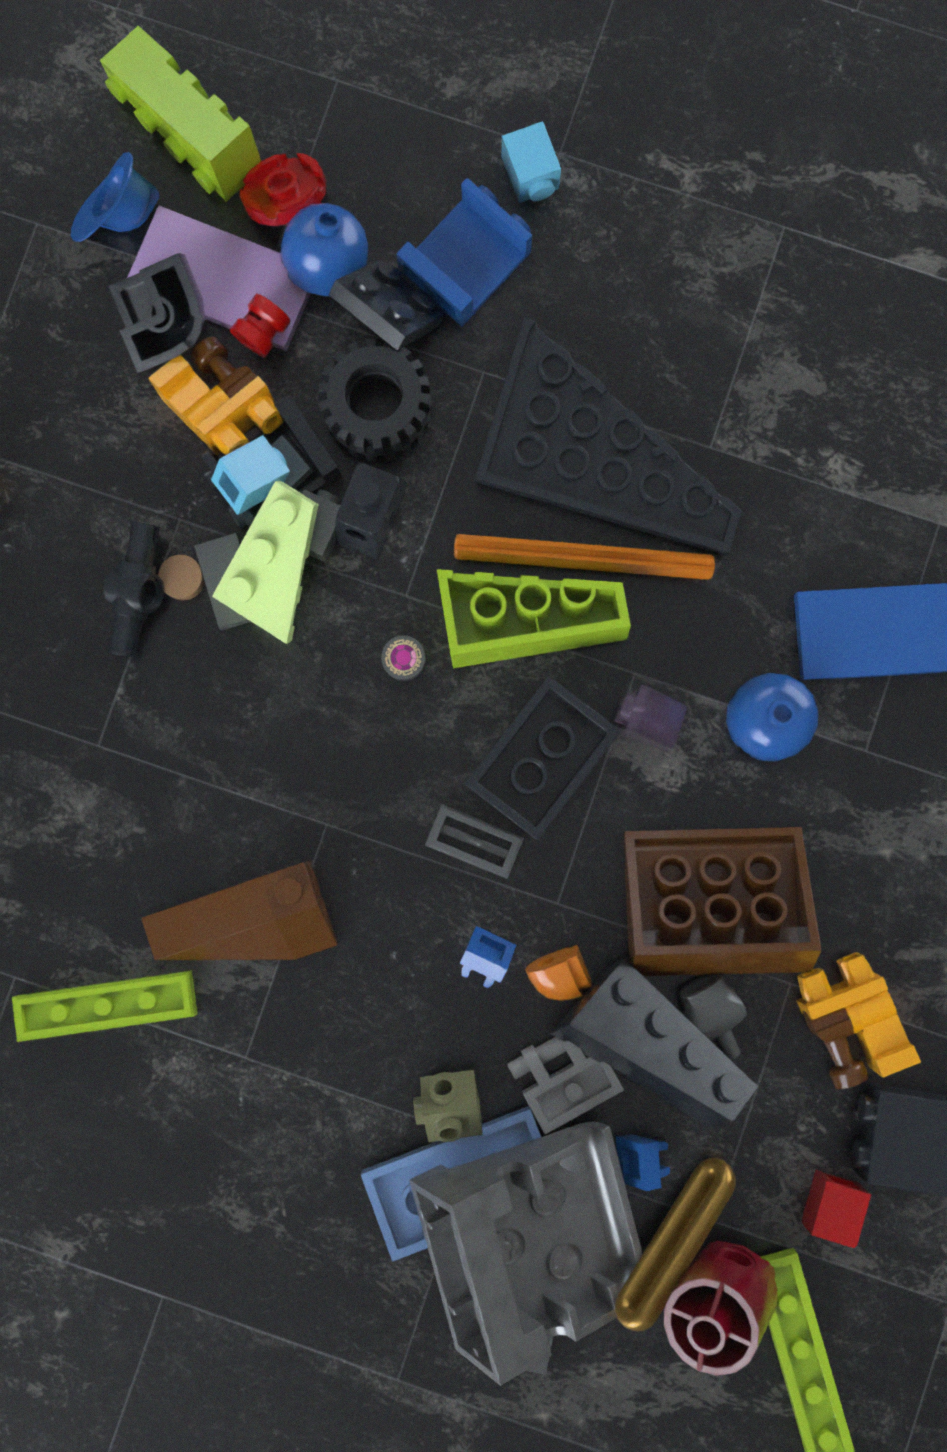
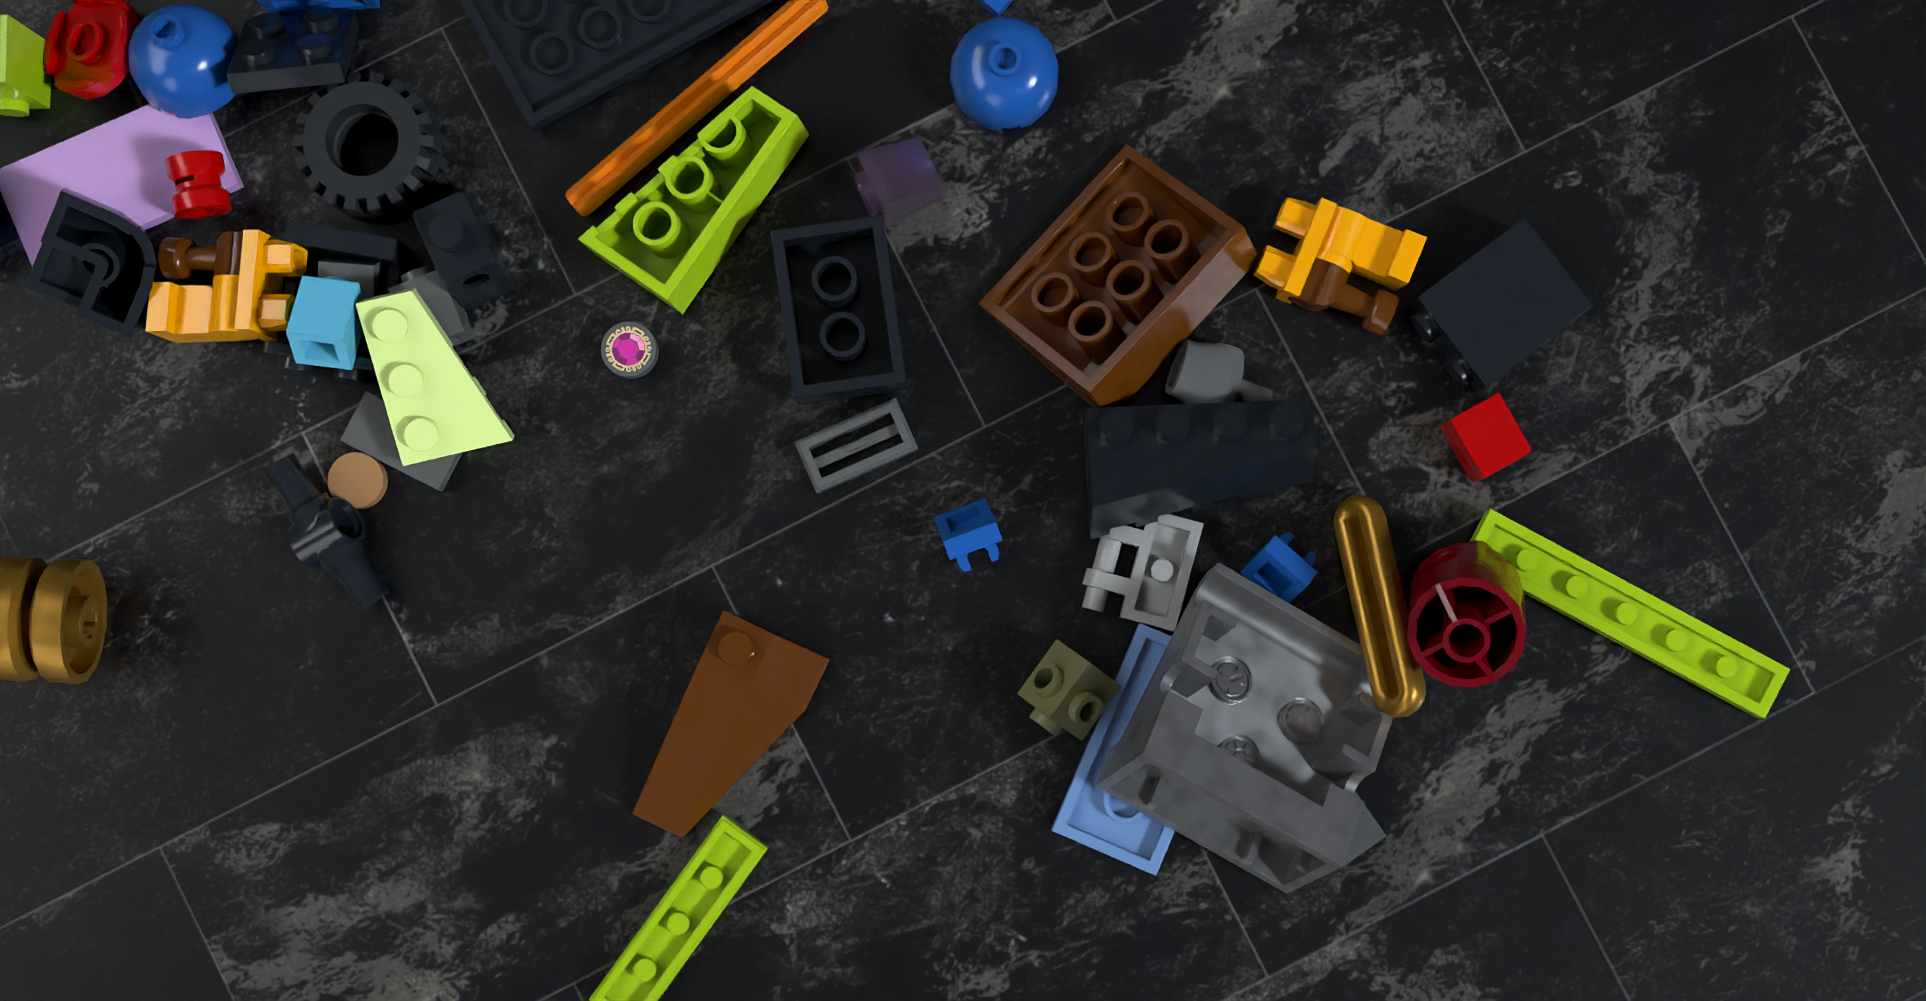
camera: 50 degrees left, 0 degrees up
(560, 974) = (1049, 483): orange piece -> none

